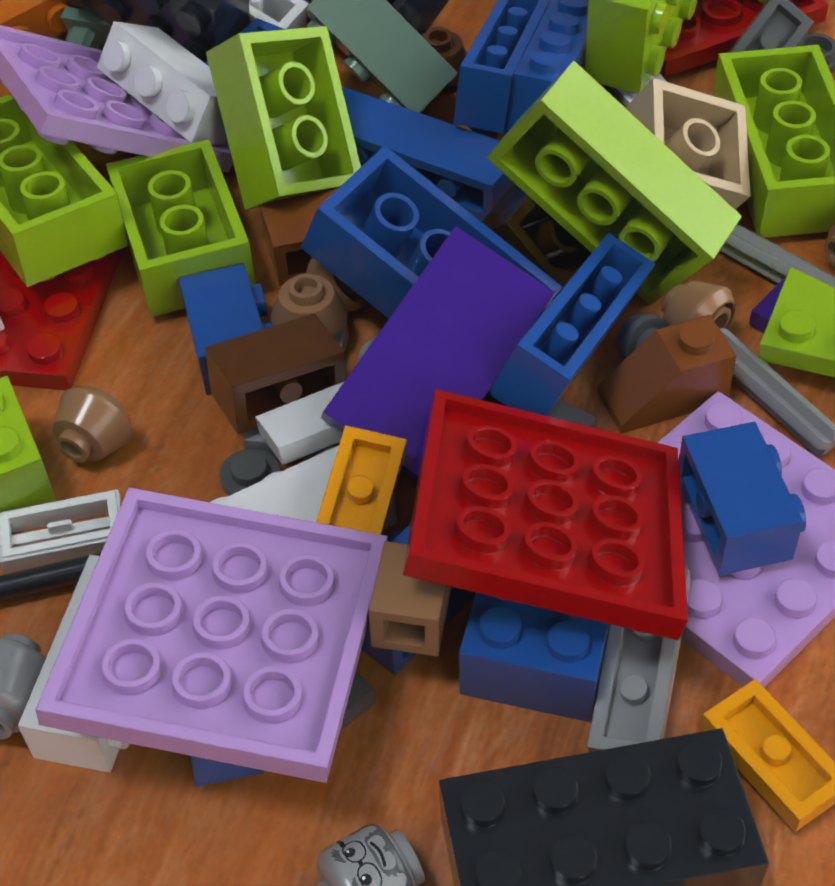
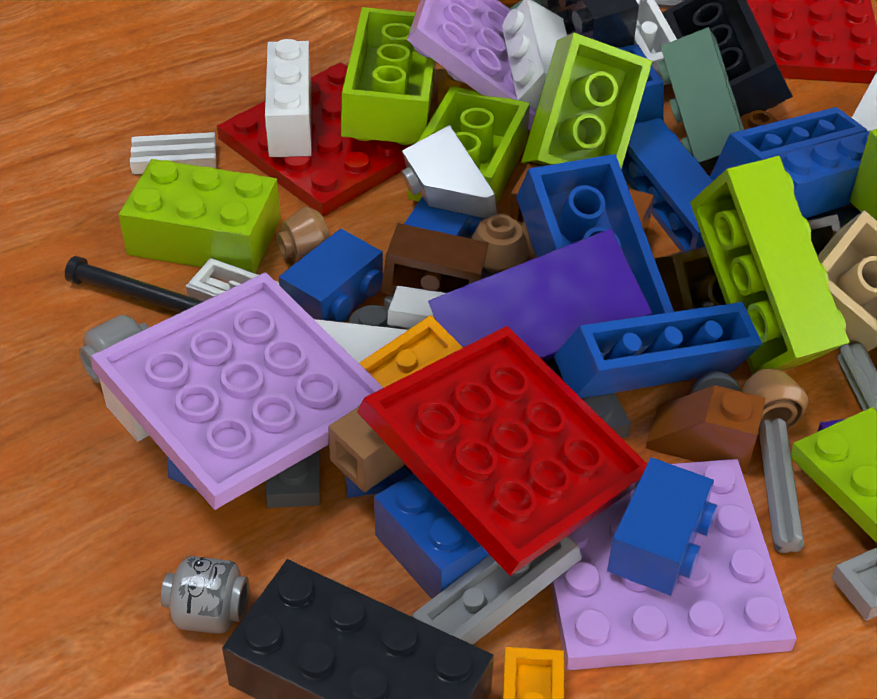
camera: 35 degrees right, 5 degrees down
(168, 444) = (335, 277): none -> blue brick
(211, 264) = (447, 176): none -> slope

